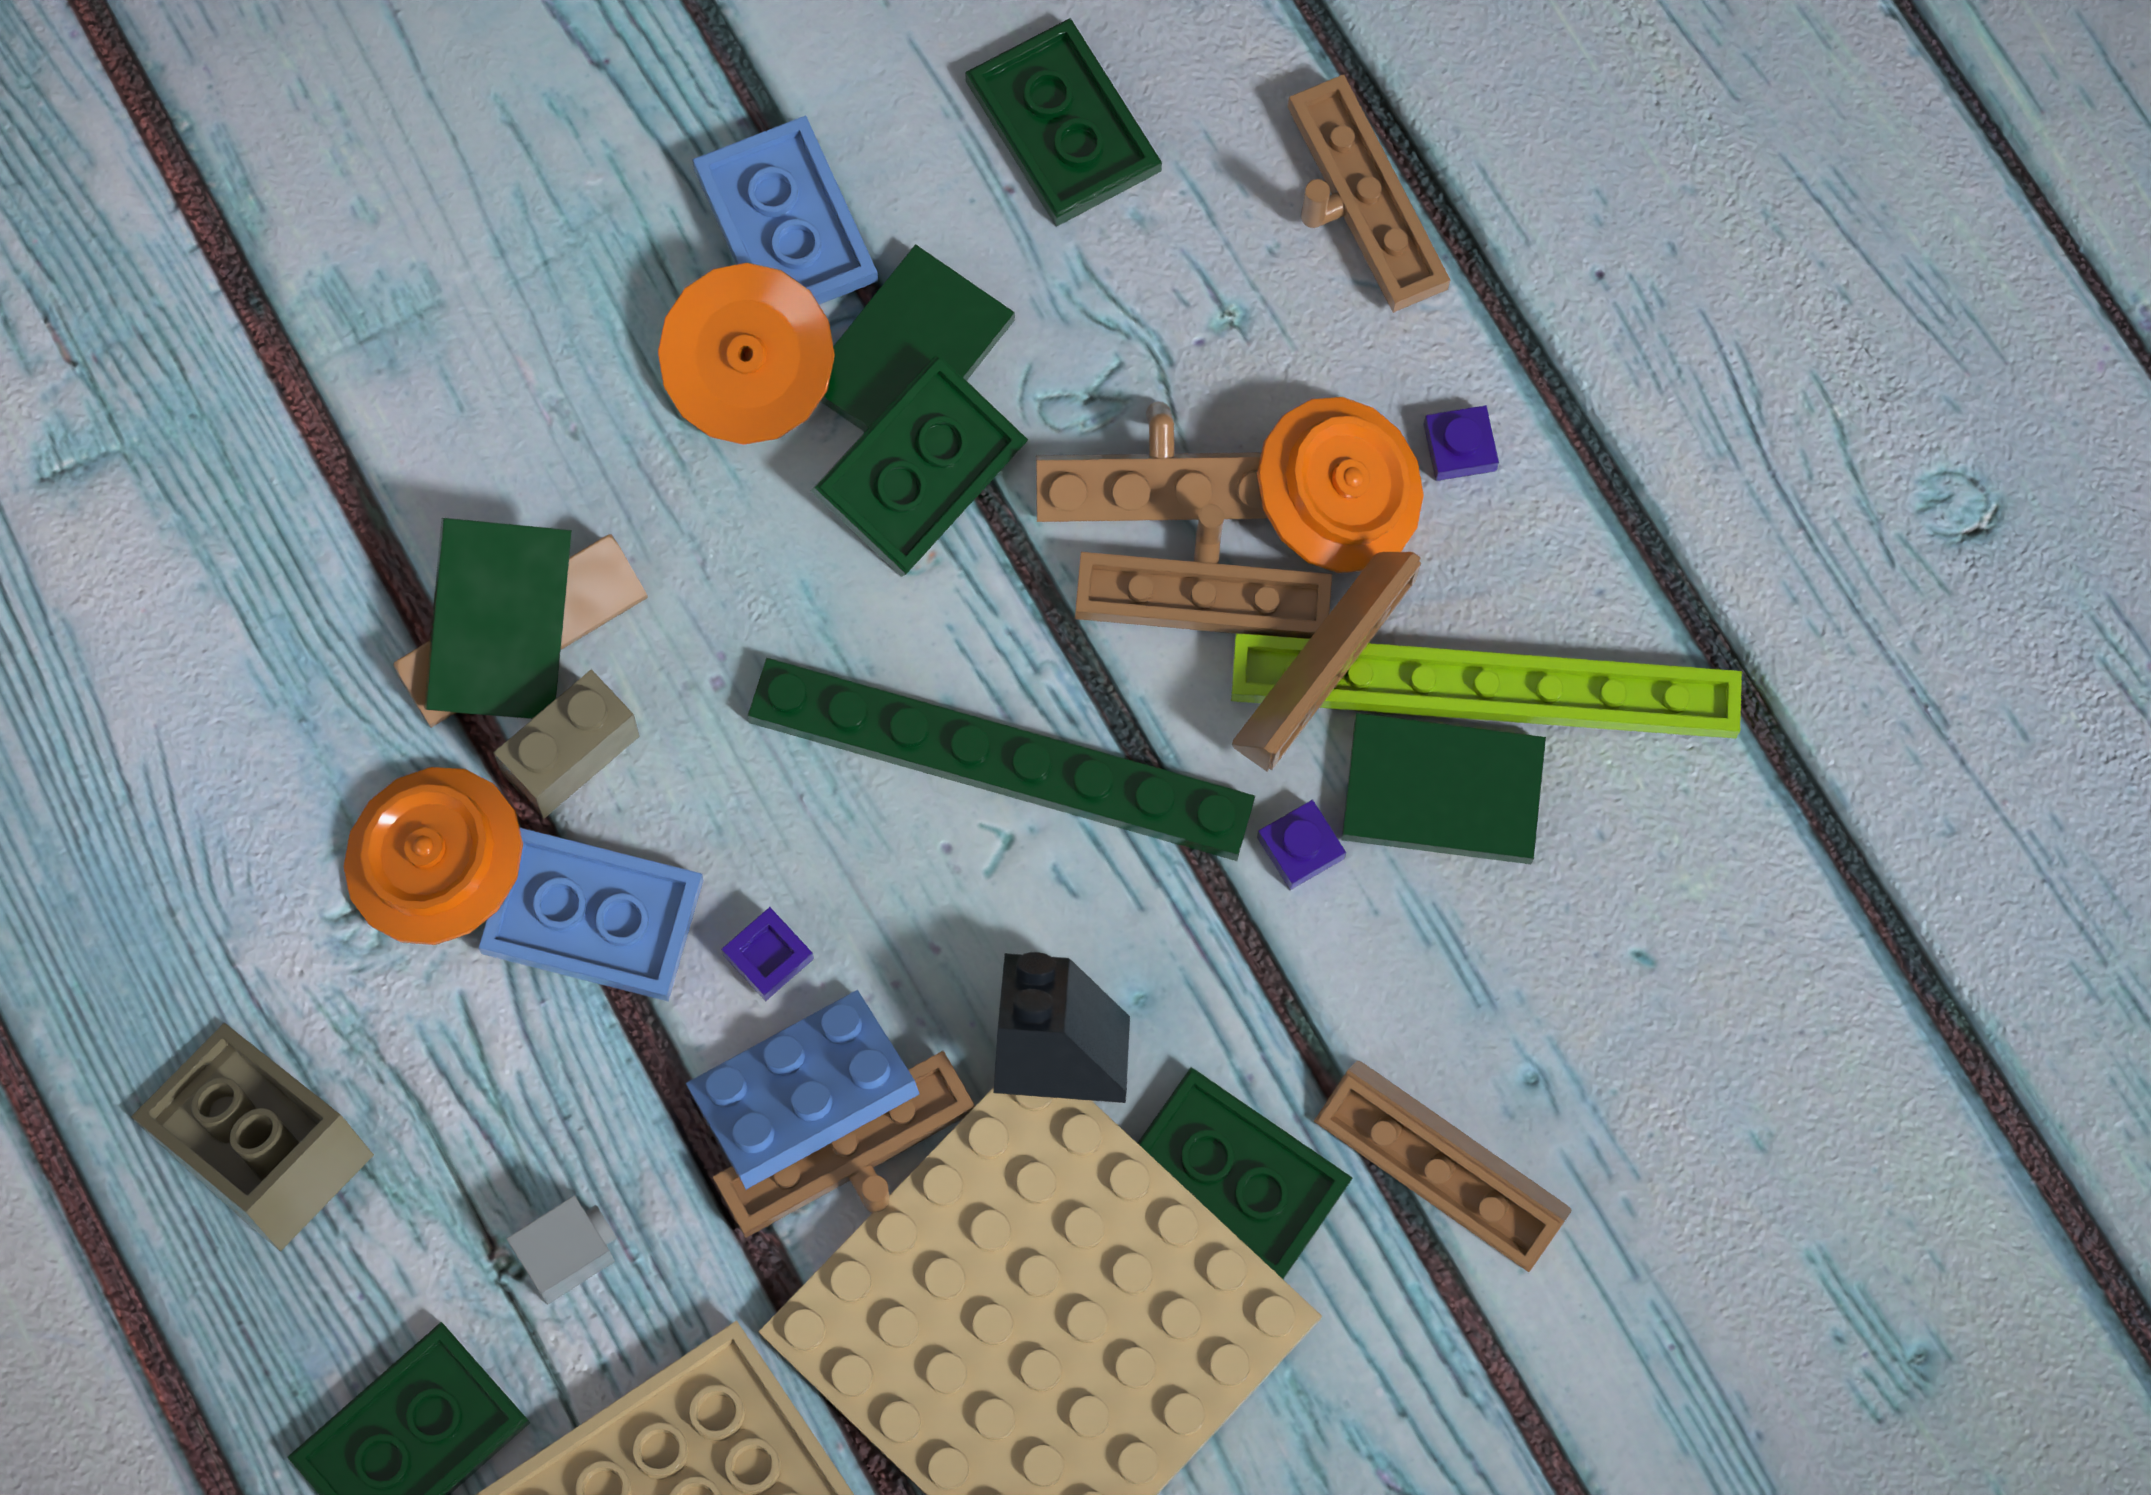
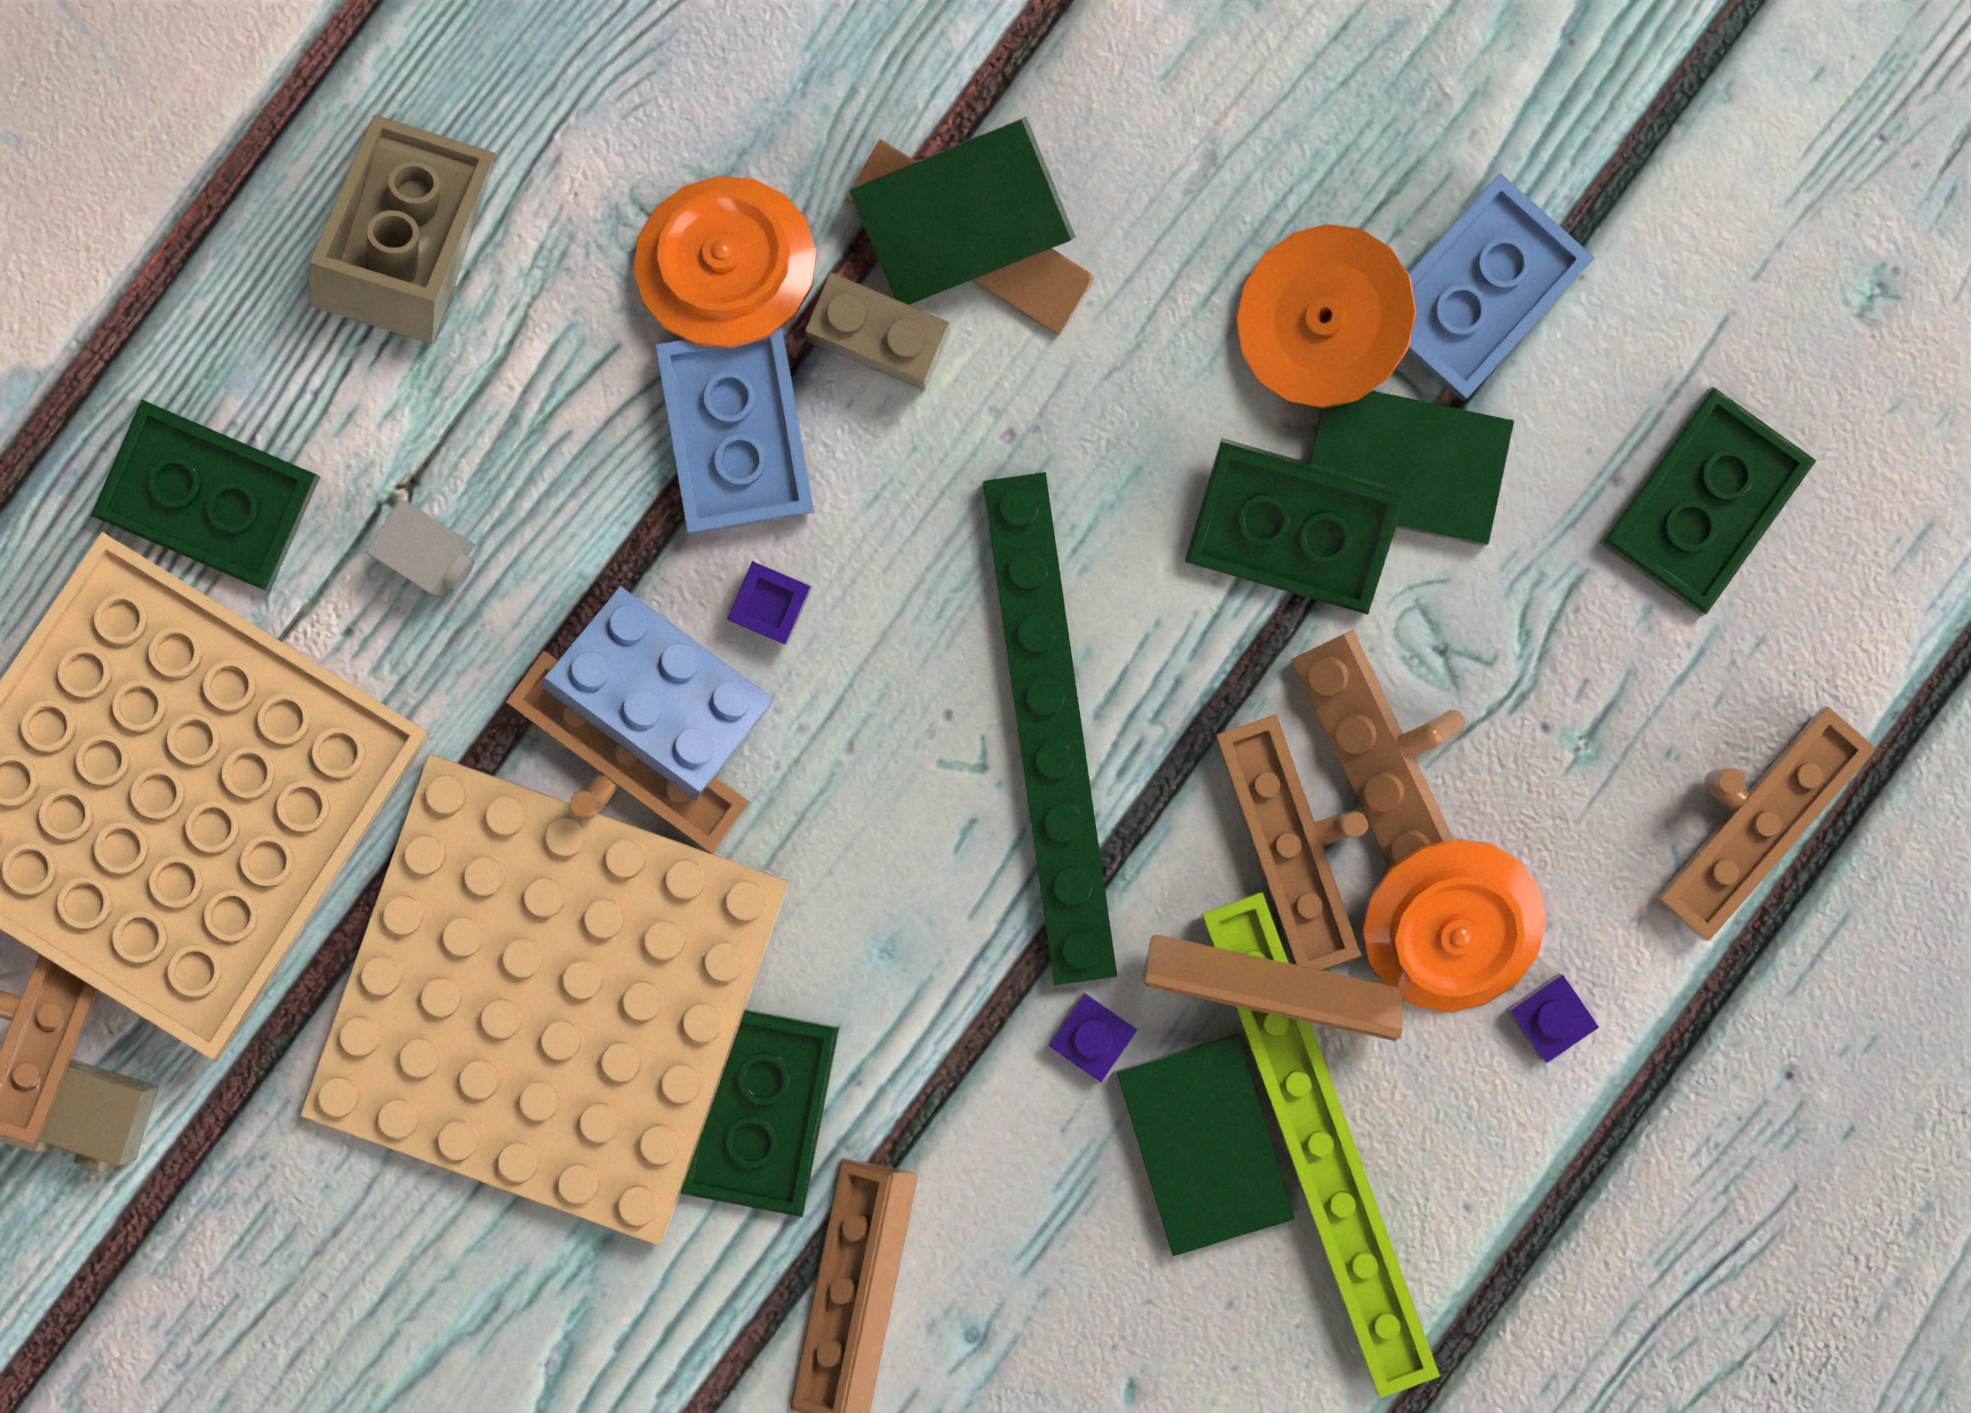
camera: 70 degrees right, 15 degrees up
(1059, 1033) = (803, 903): black slope -> none

